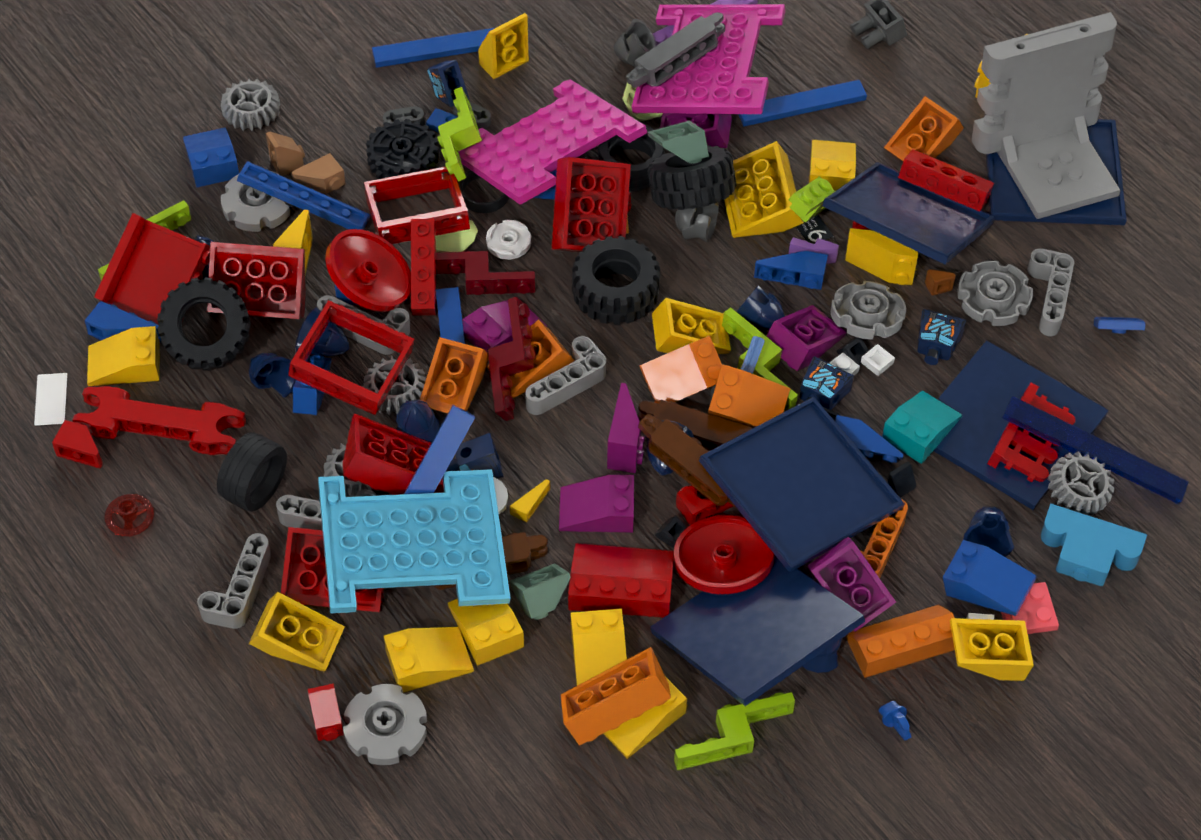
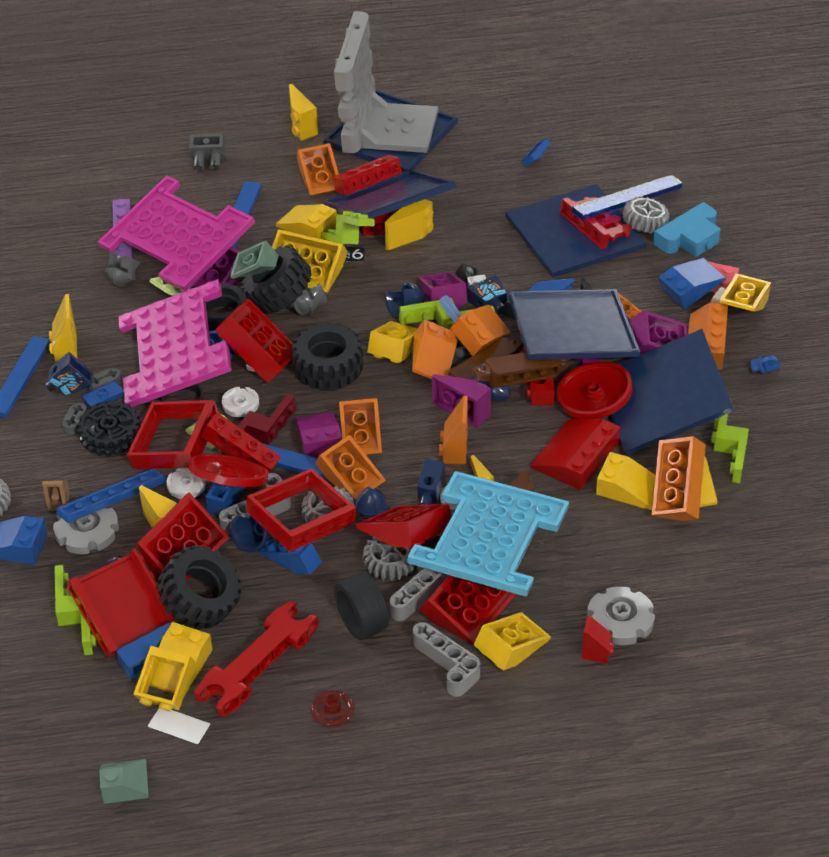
camera: 60 degrees left, 10 degrees down
(76, 444) = (245, 715): red slope -> none
(106, 355) = (158, 654): none -> yellow window
(271, 371) = (264, 571): dark blue helmet -> none
(320, 175) = (94, 478): medium nougat slope -> none
(426, 656) = (576, 576): yellow slope -> none
(441, 451) = (435, 482): blue tile -> none
(458, 134) = (130, 383): lime bracket -> none
(488, 630) = (575, 535): yellow slope -> none
(511, 358) = (359, 429): dark red bracket -> none
(540, 590) = (564, 486): sand green slope -> none
(561, 452) = (455, 435): none -> orange slope
(570, 380) = (390, 402): light grey beam -> none
(598, 505) = (509, 438): magenta slope -> none
(670, 531) = (553, 413): black slope -> none
(677, 51) = (161, 241): dark grey hinge -> none
(797, 268) = (385, 268): blue slope -> none
(820, 246) = (375, 258): medium lavender slope -> none
(868, 310) = (444, 251): light grey piece -> none
(877, 360) = (485, 264): white plate -> none
(920, 425) = (556, 263): teal slope -> none
(938, 335) = (487, 230): torso -> none
(939, 281) = (443, 213): dark orange slope -> none
(990, 529) = (652, 265): dark blue helmet -> none
(995, 293) = (473, 193): light grey piece -> none
(1057, 270) = (488, 165): light grey beam -> none

